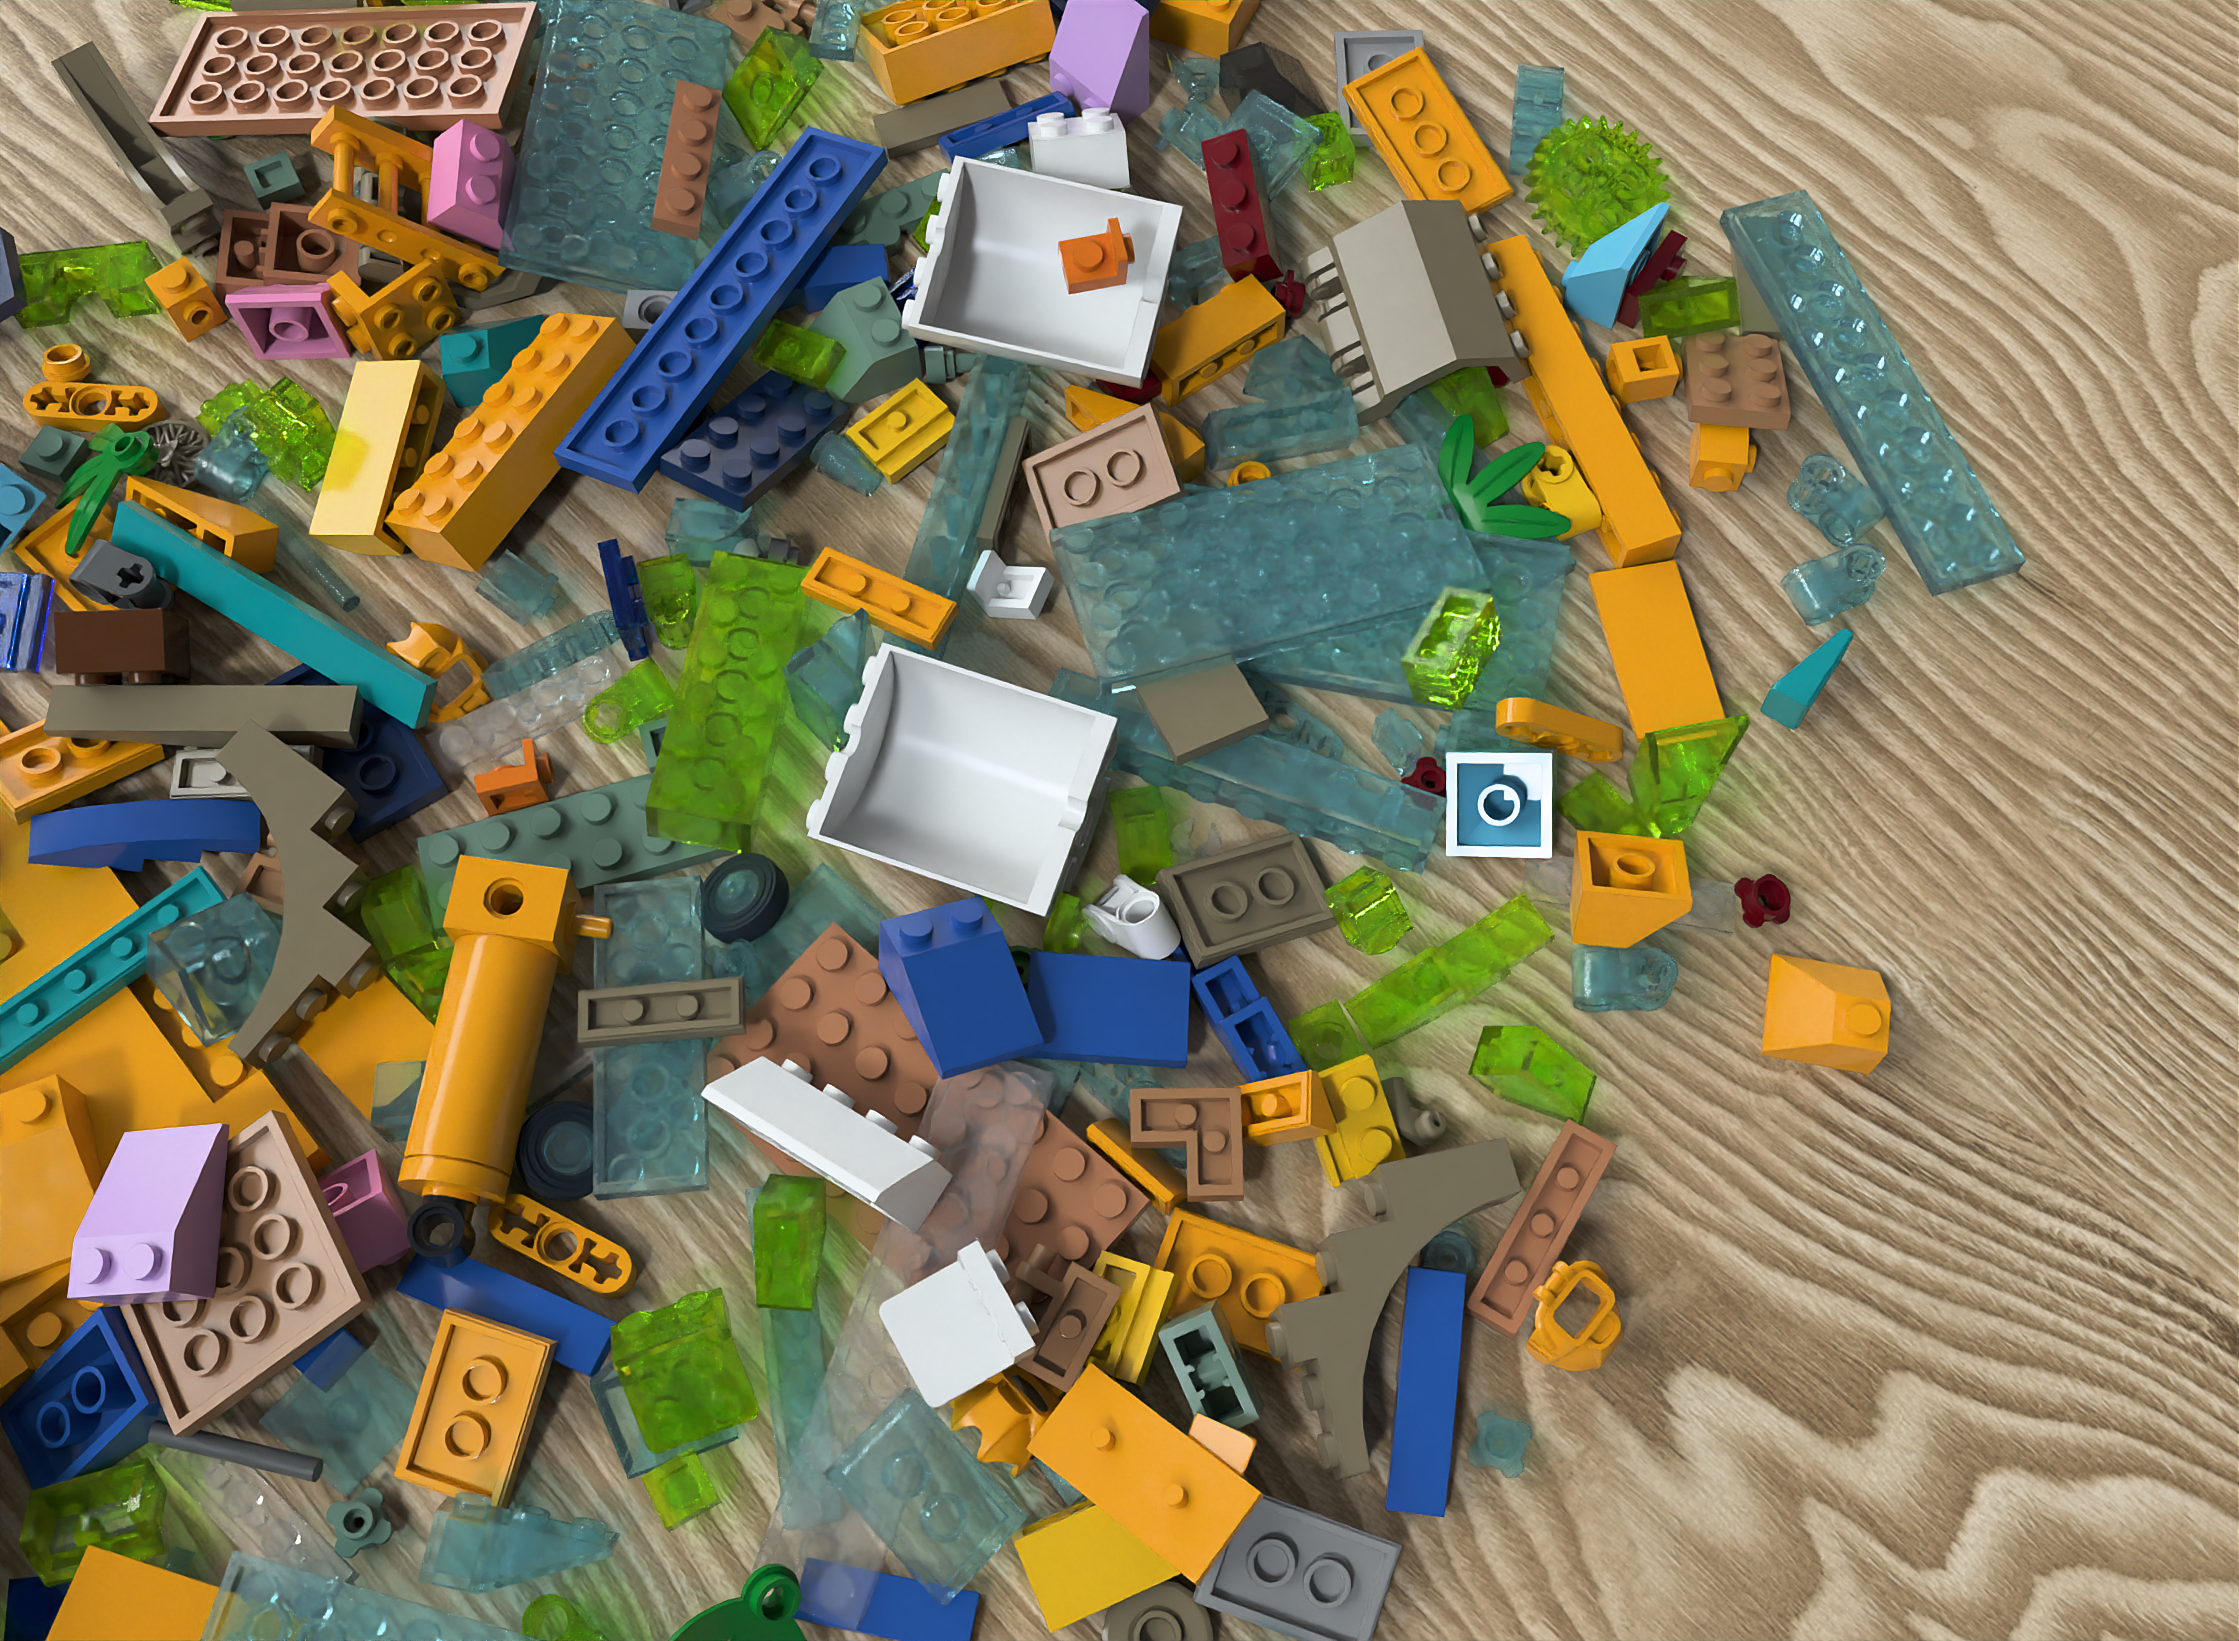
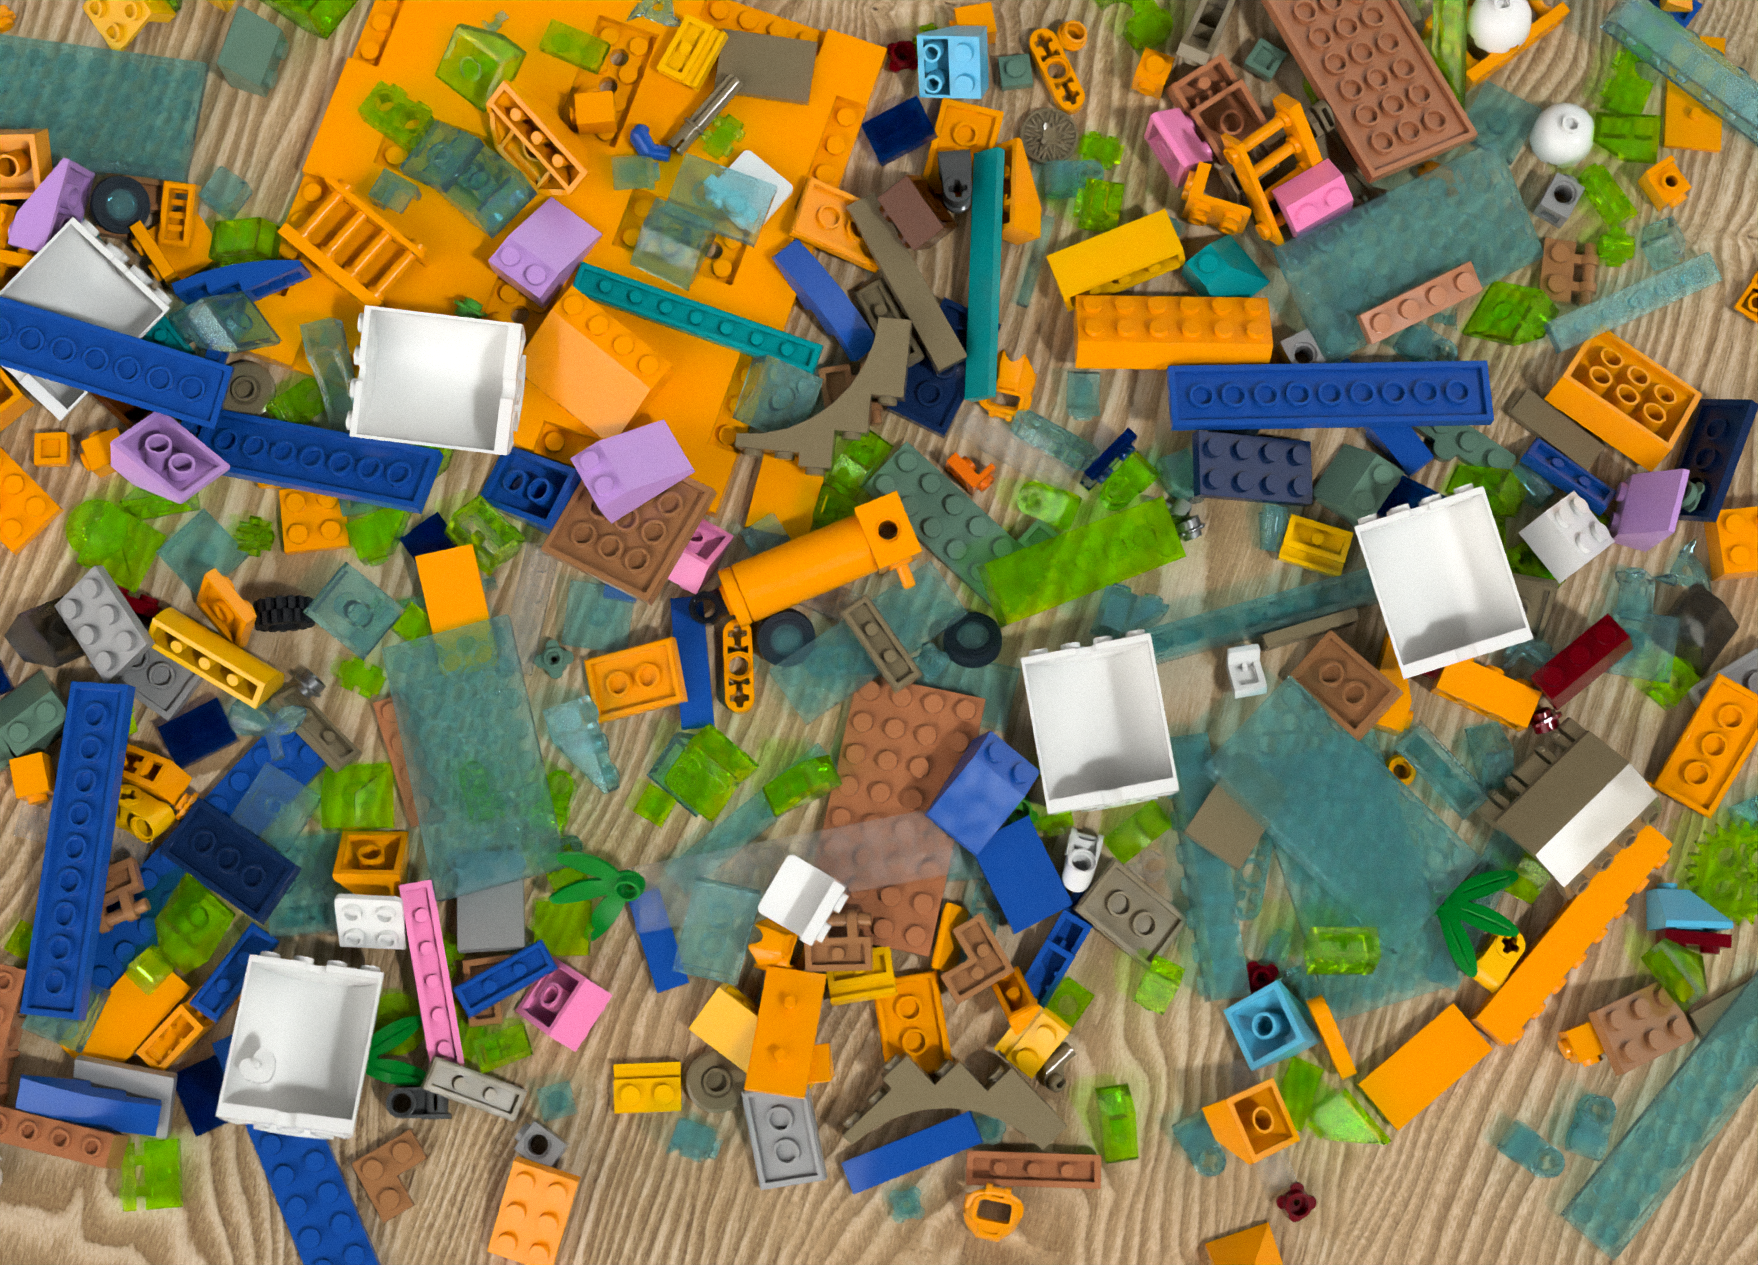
camera: 55 degrees right, 15 degrees up
(119, 454) = (1024, 121): green plant -> none
(239, 1452) = (552, 581): dark grey bar -> none
(799, 354) = (1327, 455): clear neon green plate -> none
(833, 1139) = (860, 777): white slope -> none
(888, 600) = (1185, 608): light orange tile -> none
(1096, 259) = (1462, 610): orange bracket -> none
(1211, 1366) = (859, 1036): sand green brick -> none
(1451, 974) = (1149, 1048): clear neon green slope -> none
(1642, 370) = (1631, 966): light orange brick -> none
(1797, 690) = (1447, 1163): teal slope -> none

